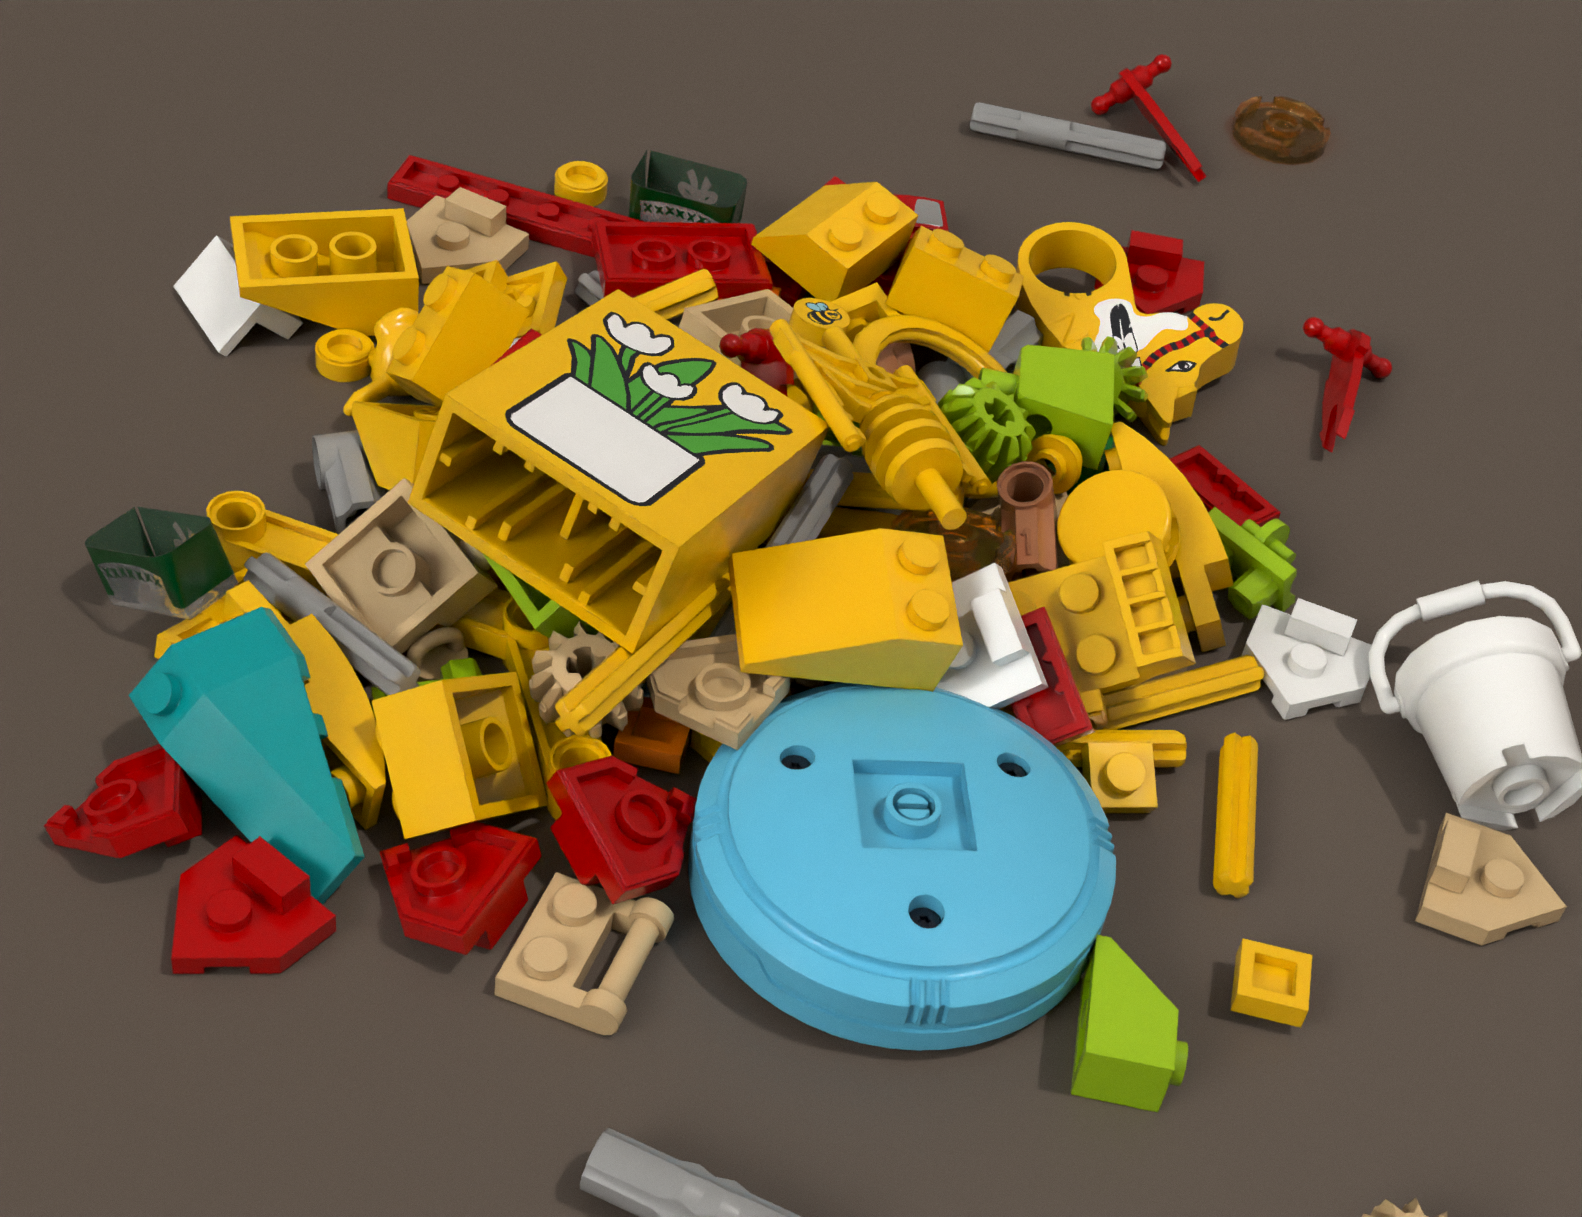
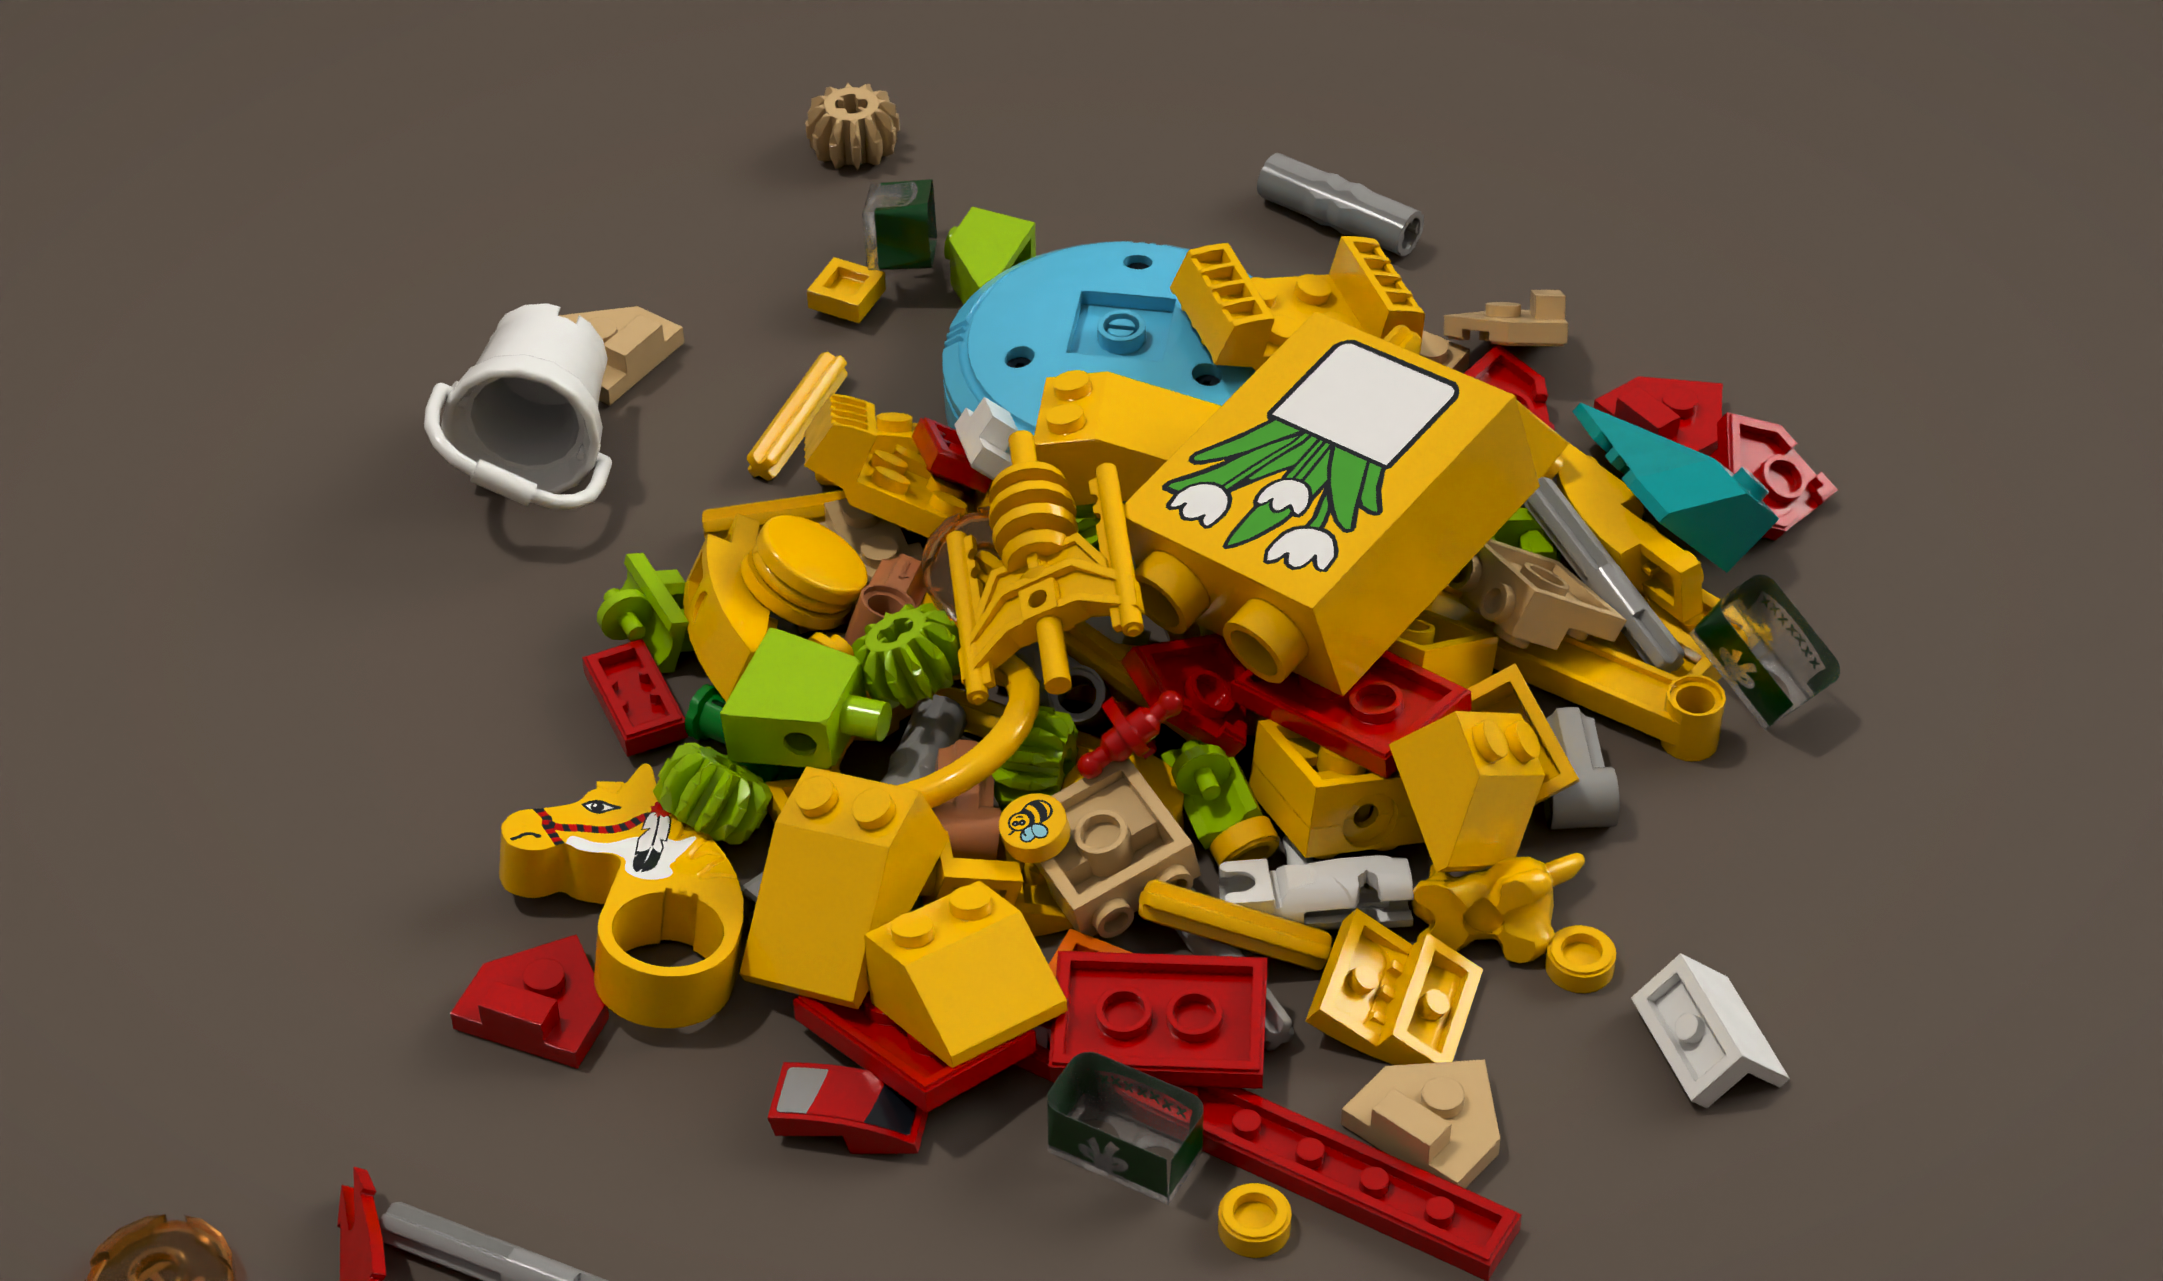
camera: 160 degrees left, 0 degrees up
(328, 265) = (1603, 1003): yellow slope -> none
(440, 984) = (1510, 326): none -> tan plate
(713, 835) = (1250, 318): none -> yellow plate
(1248, 1041) = (899, 225): none -> dark green piece
(1309, 657) = (646, 522): white plate -> none
(1350, 354) = (378, 831): red piece -> none

